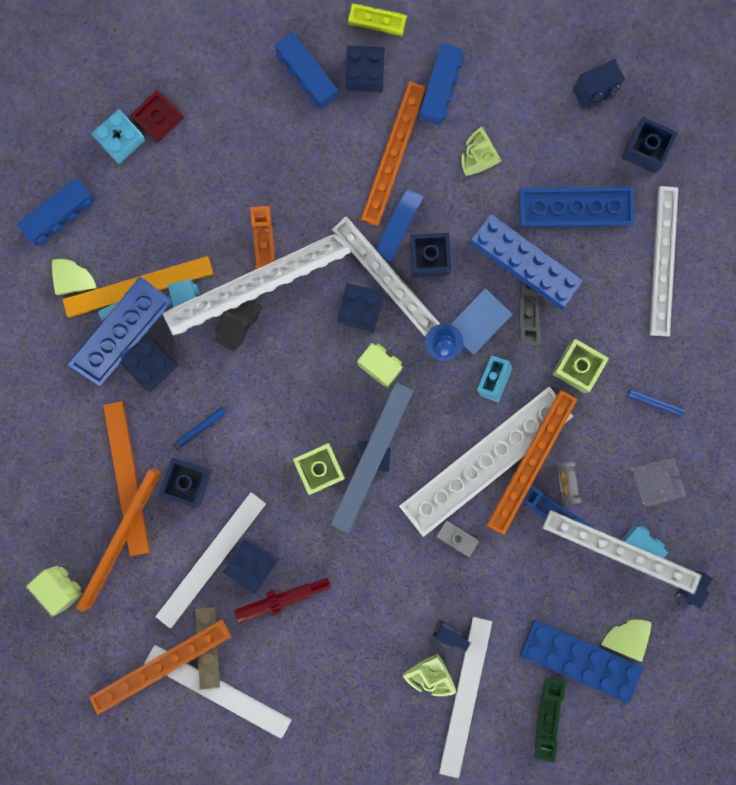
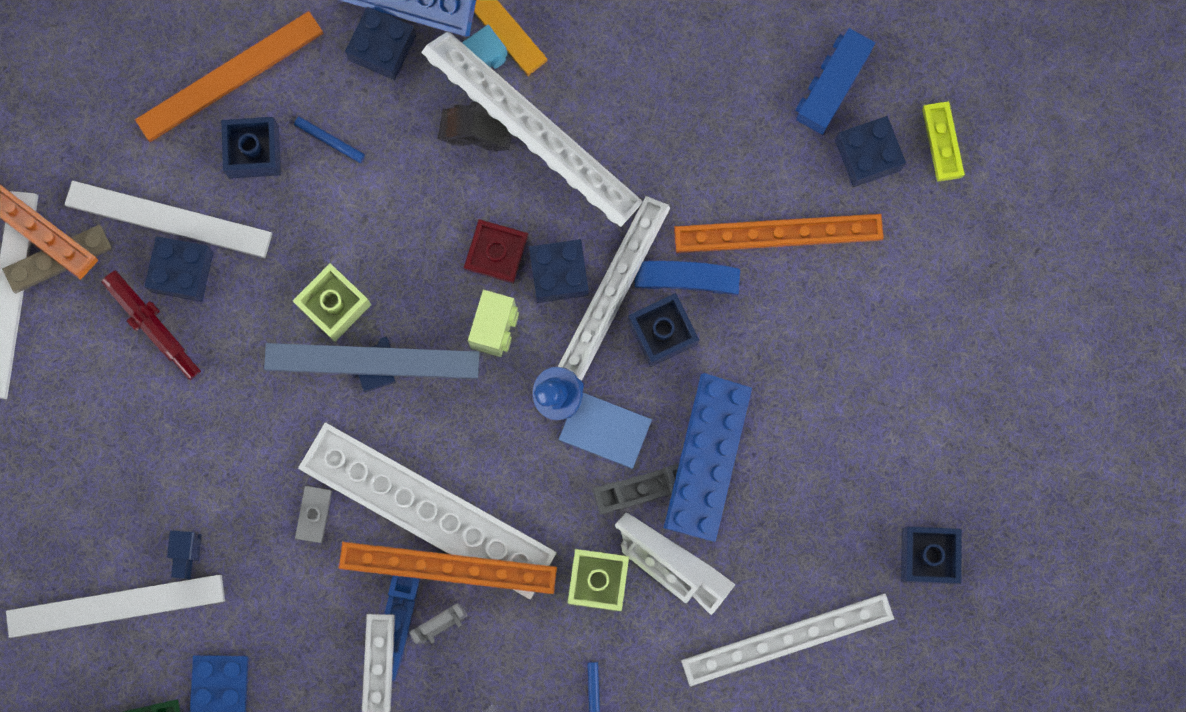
camera: 65 degrees right, 5 degrees down
(55, 590) = (59, 47): yellowish green brick -> none
(119, 539) = (150, 97): orange tile -> none
(262, 235) = (599, 114): orange slope -> none
(328, 344) = (496, 251): none -> dark red plate
(438, 681) = (122, 561): yellowish green brick -> none
(441, 83) = (894, 255): blue brick -> none
(481, 146) = (814, 339): yellowish green brick -> none
(494, 378) = (536, 477): medium azure brick -> none
(576, 207) = (809, 495): blue plate -> none
(587, 314) = (672, 565): none -> white wedge
(598, 84) = (981, 455): dark blue brick -> none

